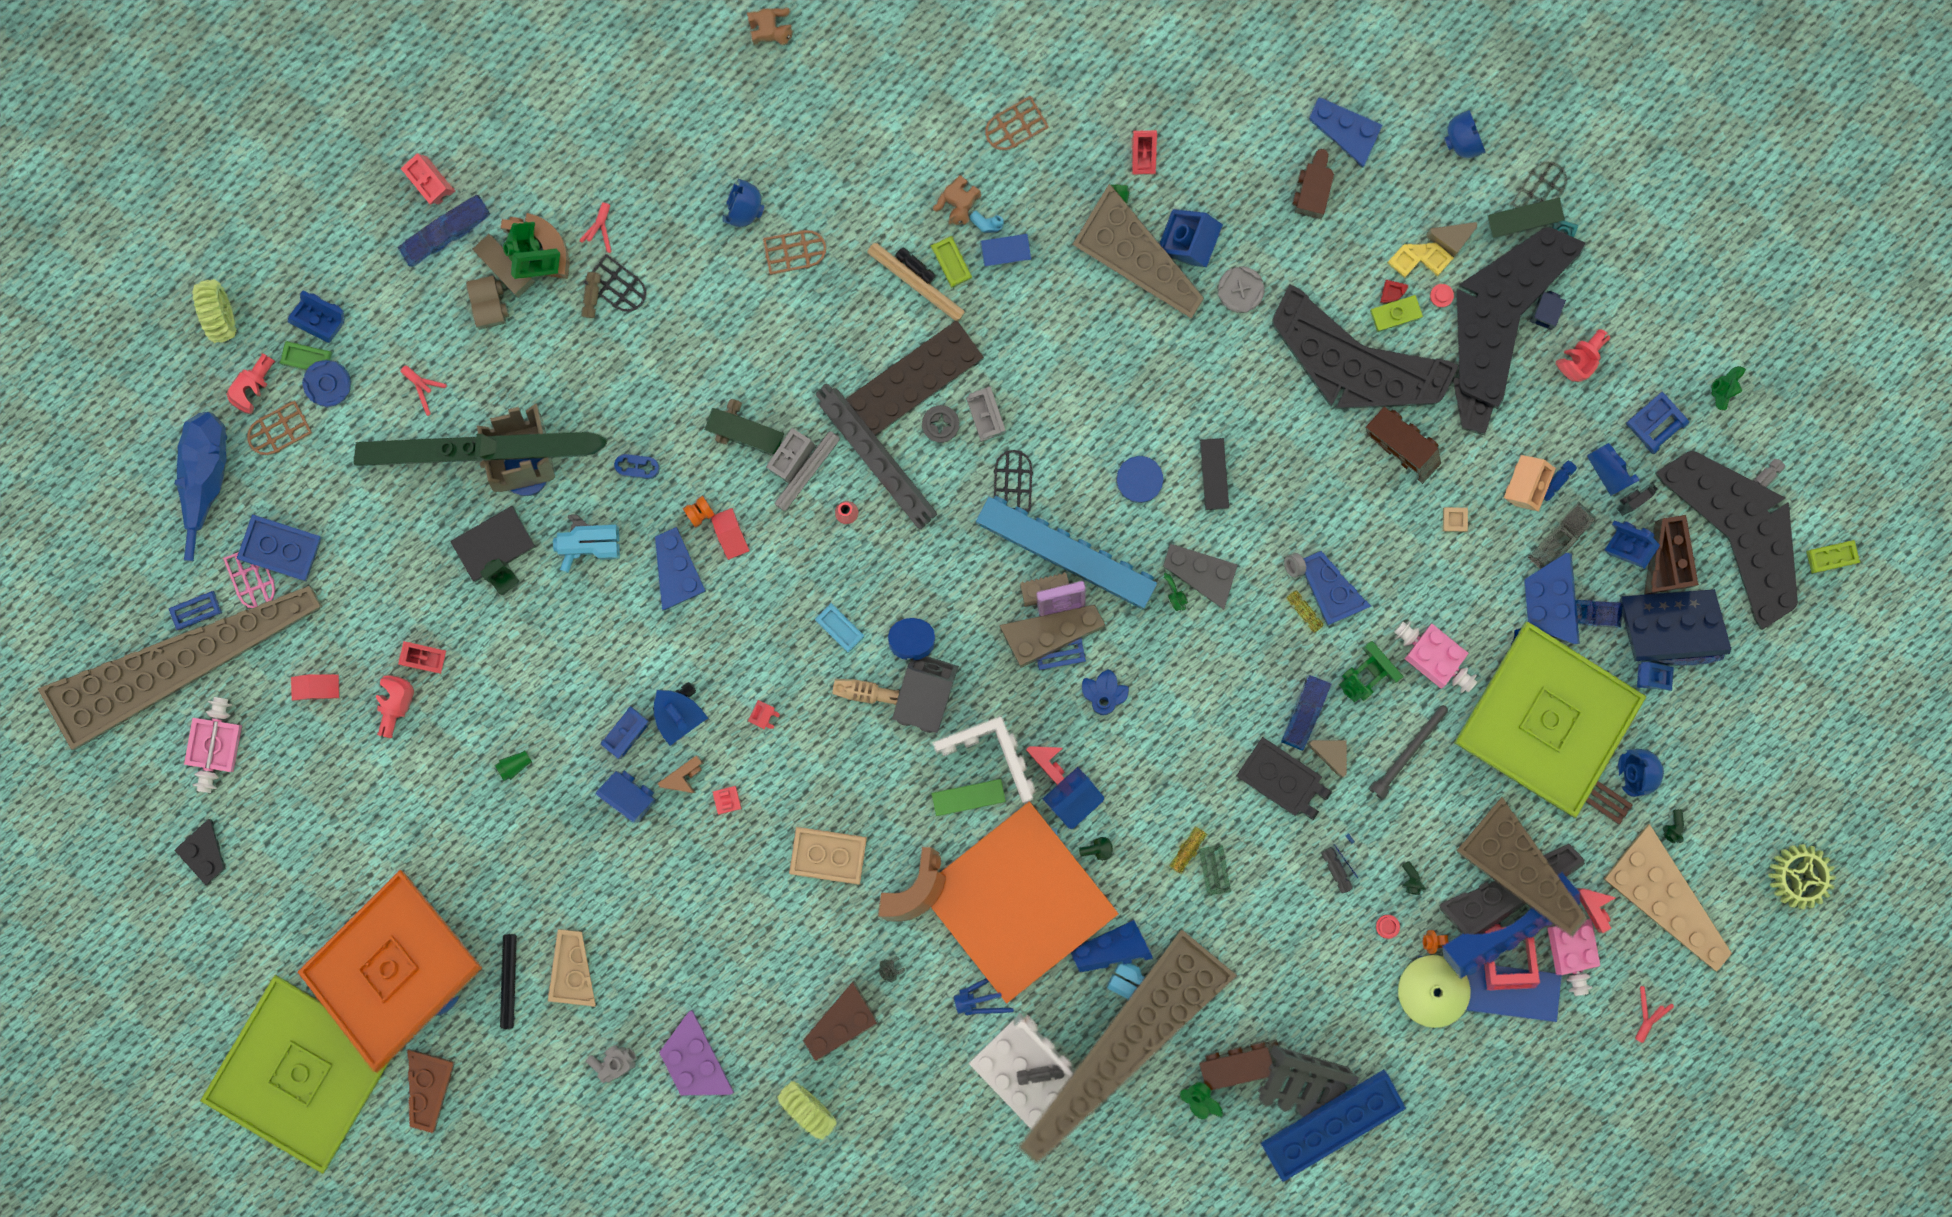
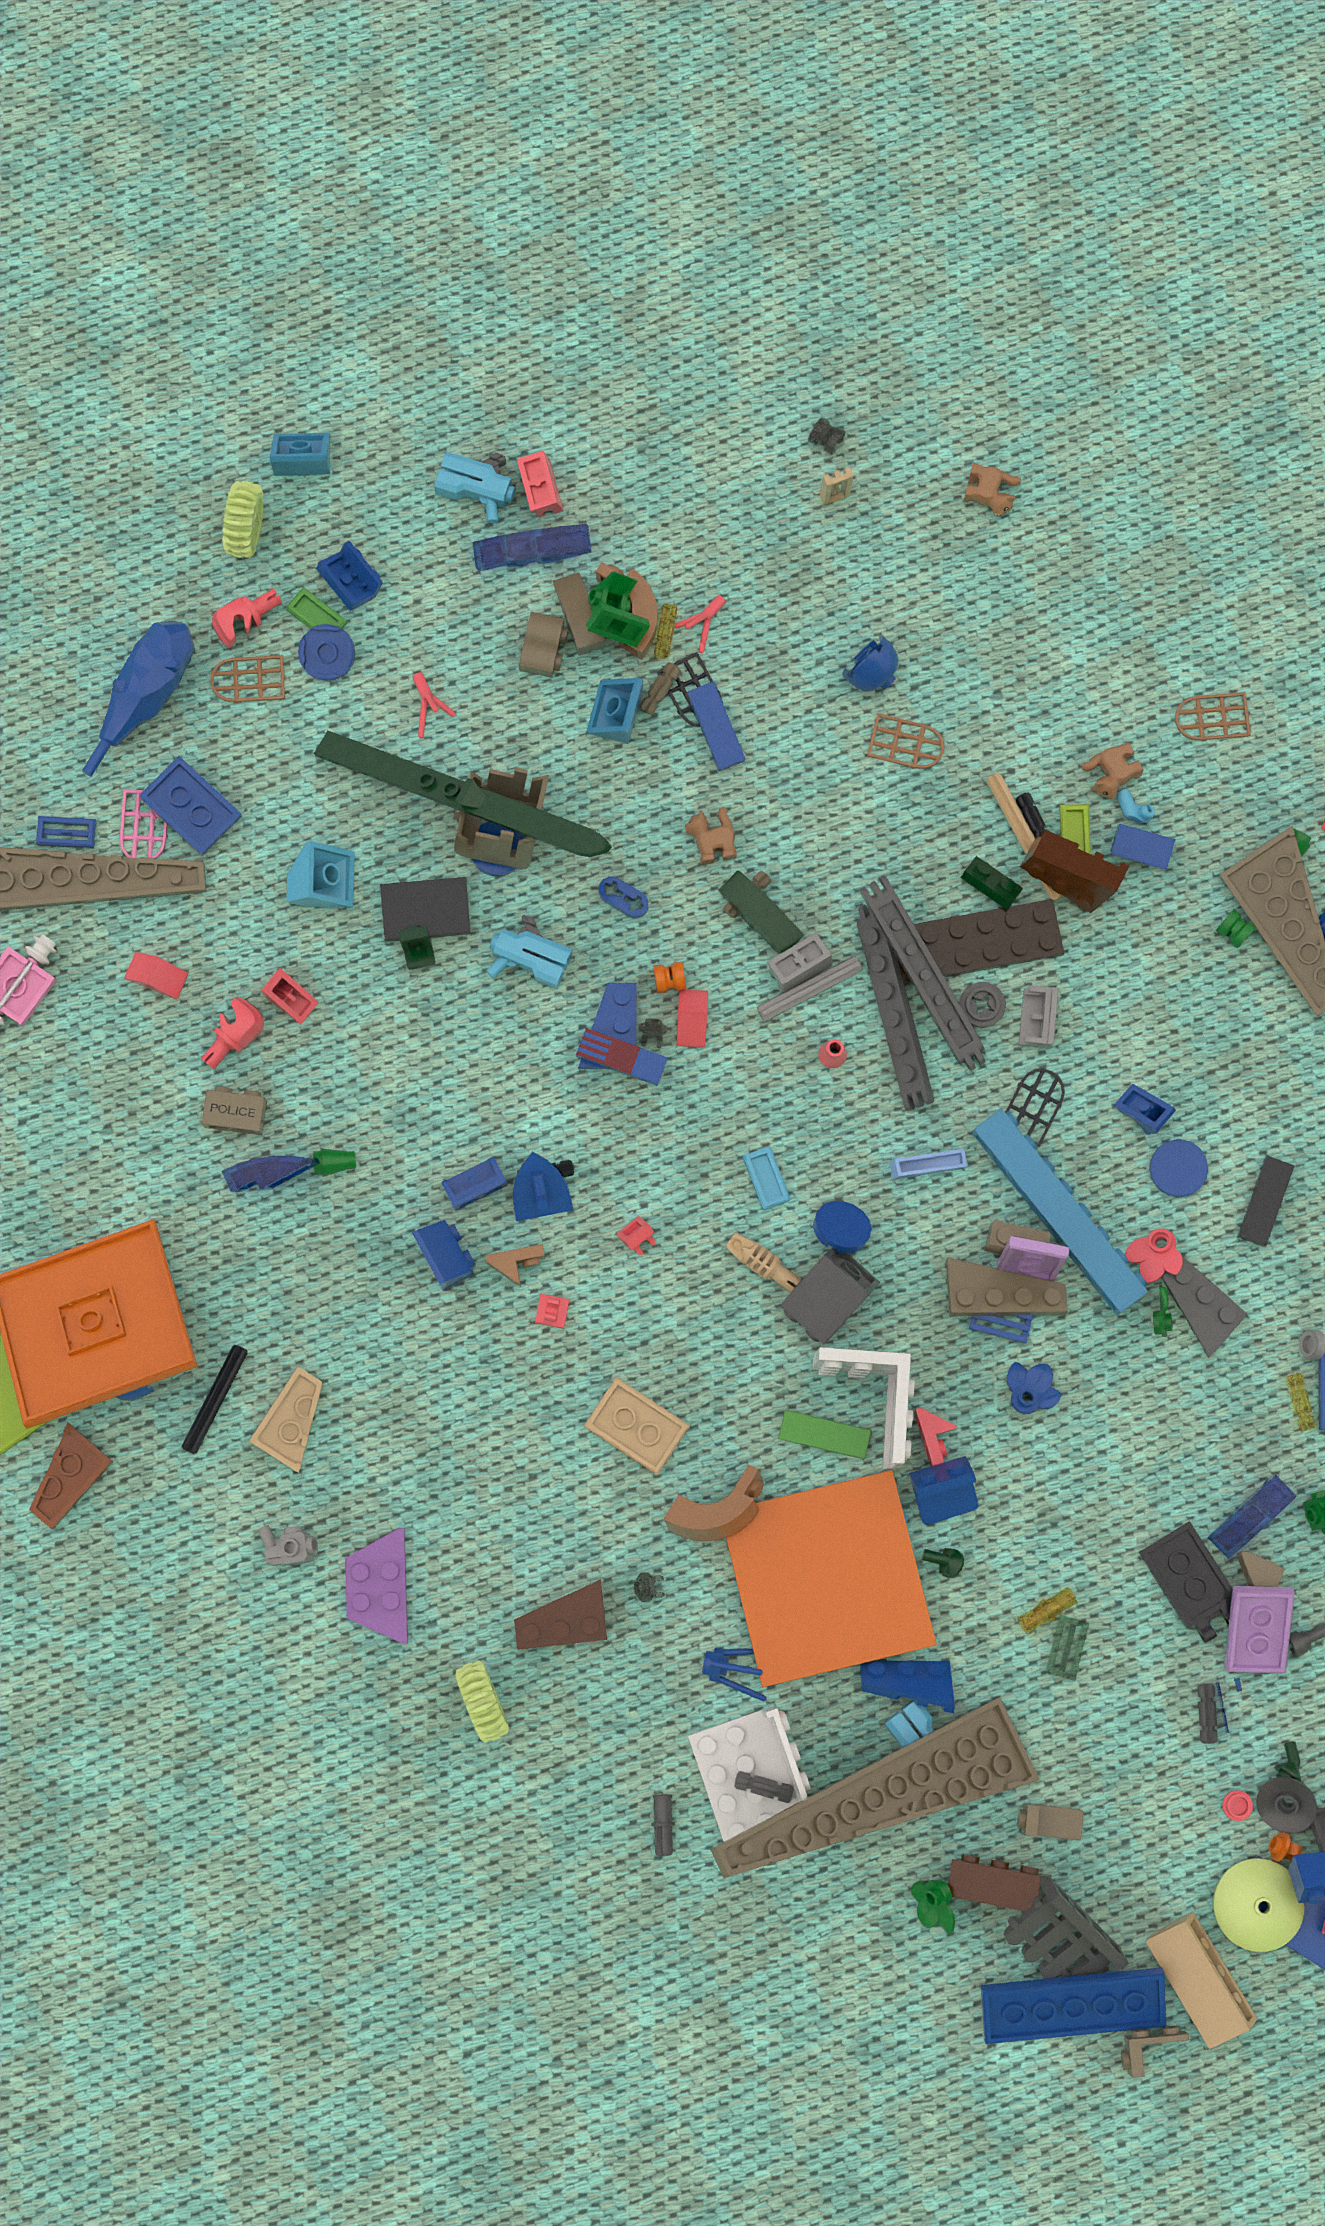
camera: 20 degrees right, 5 degrees down
(234, 239) = (300, 454): none -> dark azure slope
(378, 199) = (476, 481): none -> medium azure piece
(404, 556) = (322, 877): none -> medium azure slope
(421, 762) = (234, 1111): none -> dark tan brick
(466, 797) = (266, 1171): none -> clear blue slope
(565, 326) = (615, 709): none -> dark azure slope
(575, 249) = (665, 631): none -> clear yellow axle
(627, 41) = (826, 435): none -> clear smoke wheel
(646, 304) = (716, 726): none -> blue tile
(650, 77) = (831, 486): none -> tan tile
(681, 394) = (713, 840): none -> medium nougat animal
(690, 588) = (621, 1056): none -> tile
(704, 555) = (654, 1028): none -> clear smoke plate
(885, 421) = (924, 973): none -> dark grey hinge
(906, 328) = (991, 883): none -> dark green plate
(954, 562) = (928, 1164): none -> light blue piece
(962, 294) = (1072, 872): none -> reddish brown wedge
(980, 1135) = (663, 1824): none -> dark grey axle
(1094, 447) = (1144, 1109): none -> blue slope
(1102, 279) = (1235, 928): none -> green wheel
(1151, 556) = (1155, 1260): none -> coral plate
(1258, 1002) = (1050, 1821): none -> dark tan bracket
(1347, 793) = (1259, 1629): none -> lavender tile
(1391, 1141) = (1132, 2057): none -> dark tan bracket
(1417, 1064) = (1201, 1980): none -> tan brick
(1422, 918) = (1286, 1816): none -> dark grey dish

